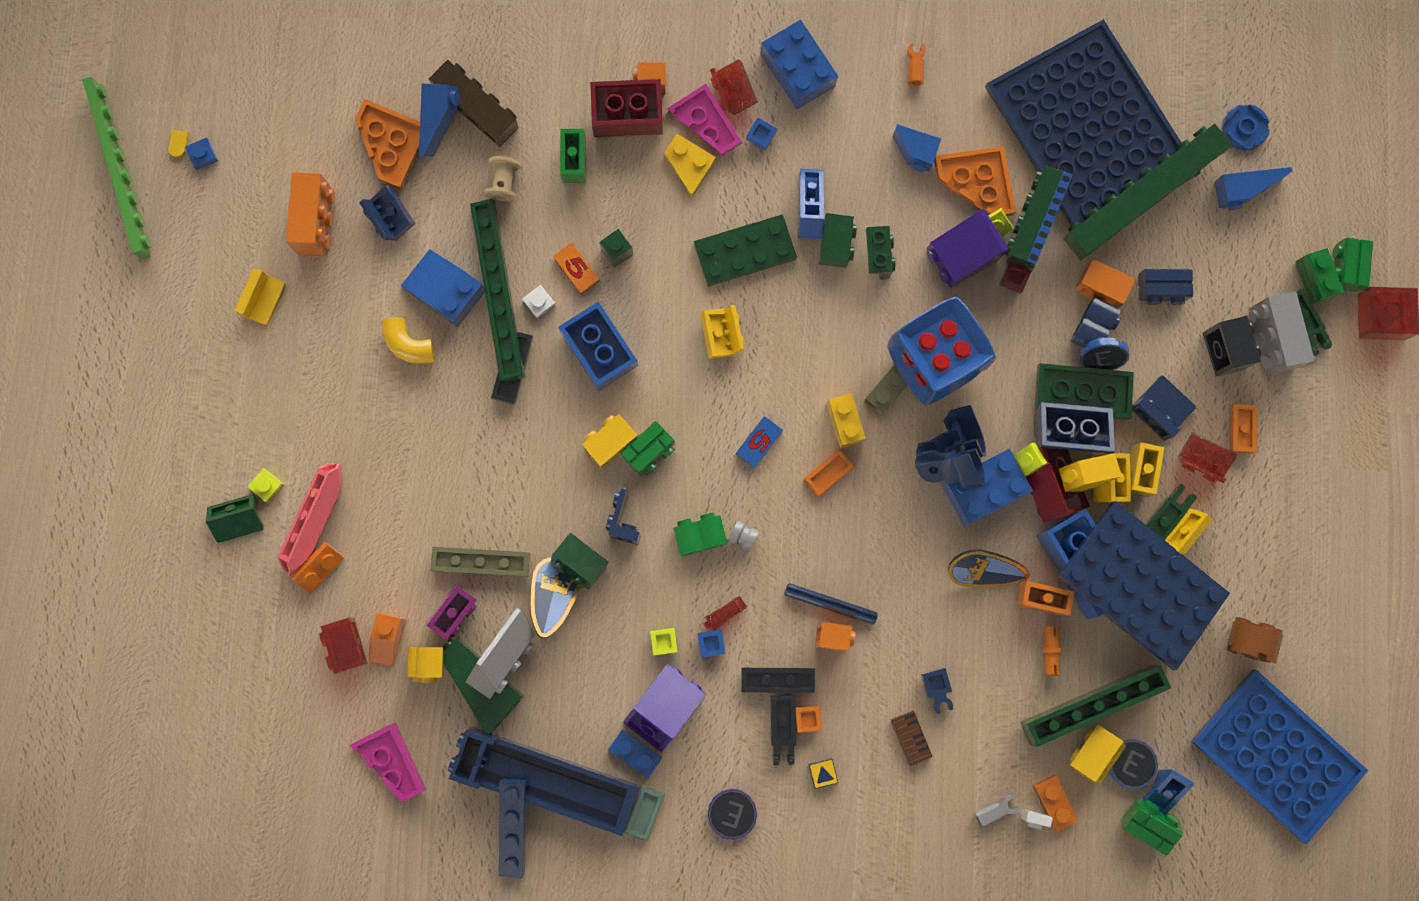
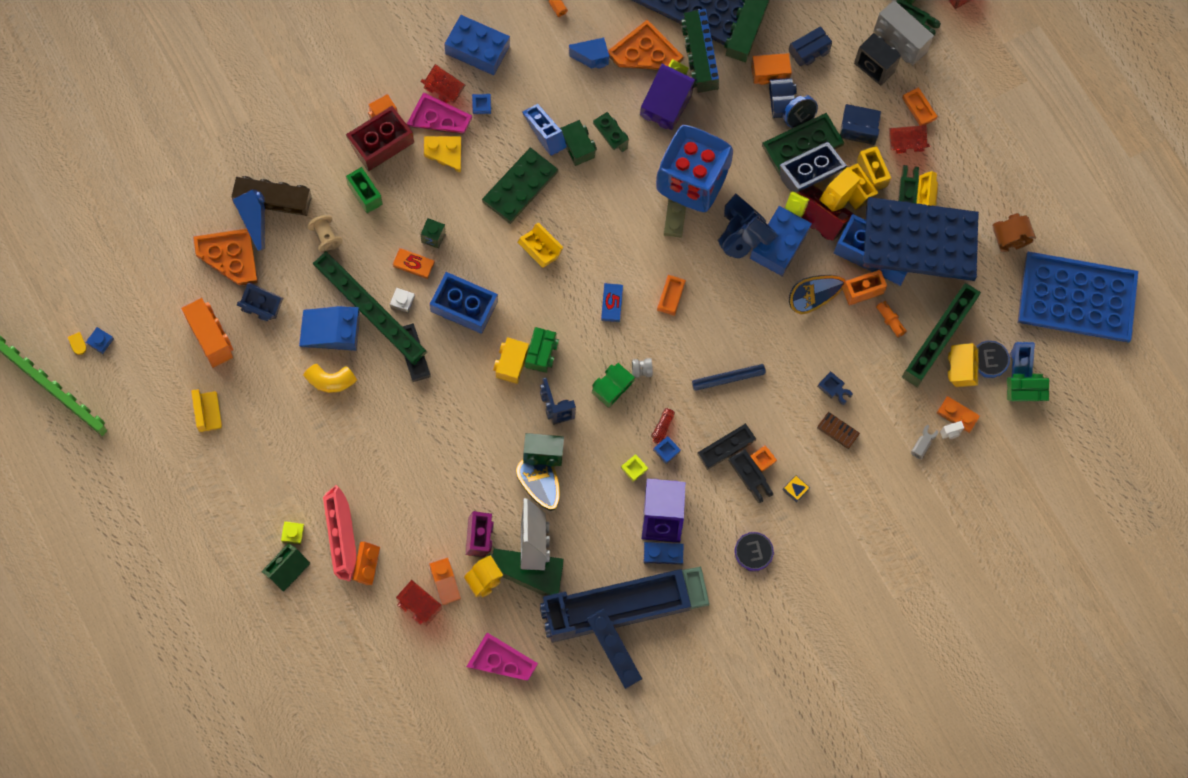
camera: 30 degrees left, 10 degrees down
(480, 561) = (476, 492): olive plate -> none
(834, 636) = (744, 393): orange brick -> none
(845, 420) = (660, 253): yellow brick -> none
(1015, 277) = (710, 98): dark red plate -> none

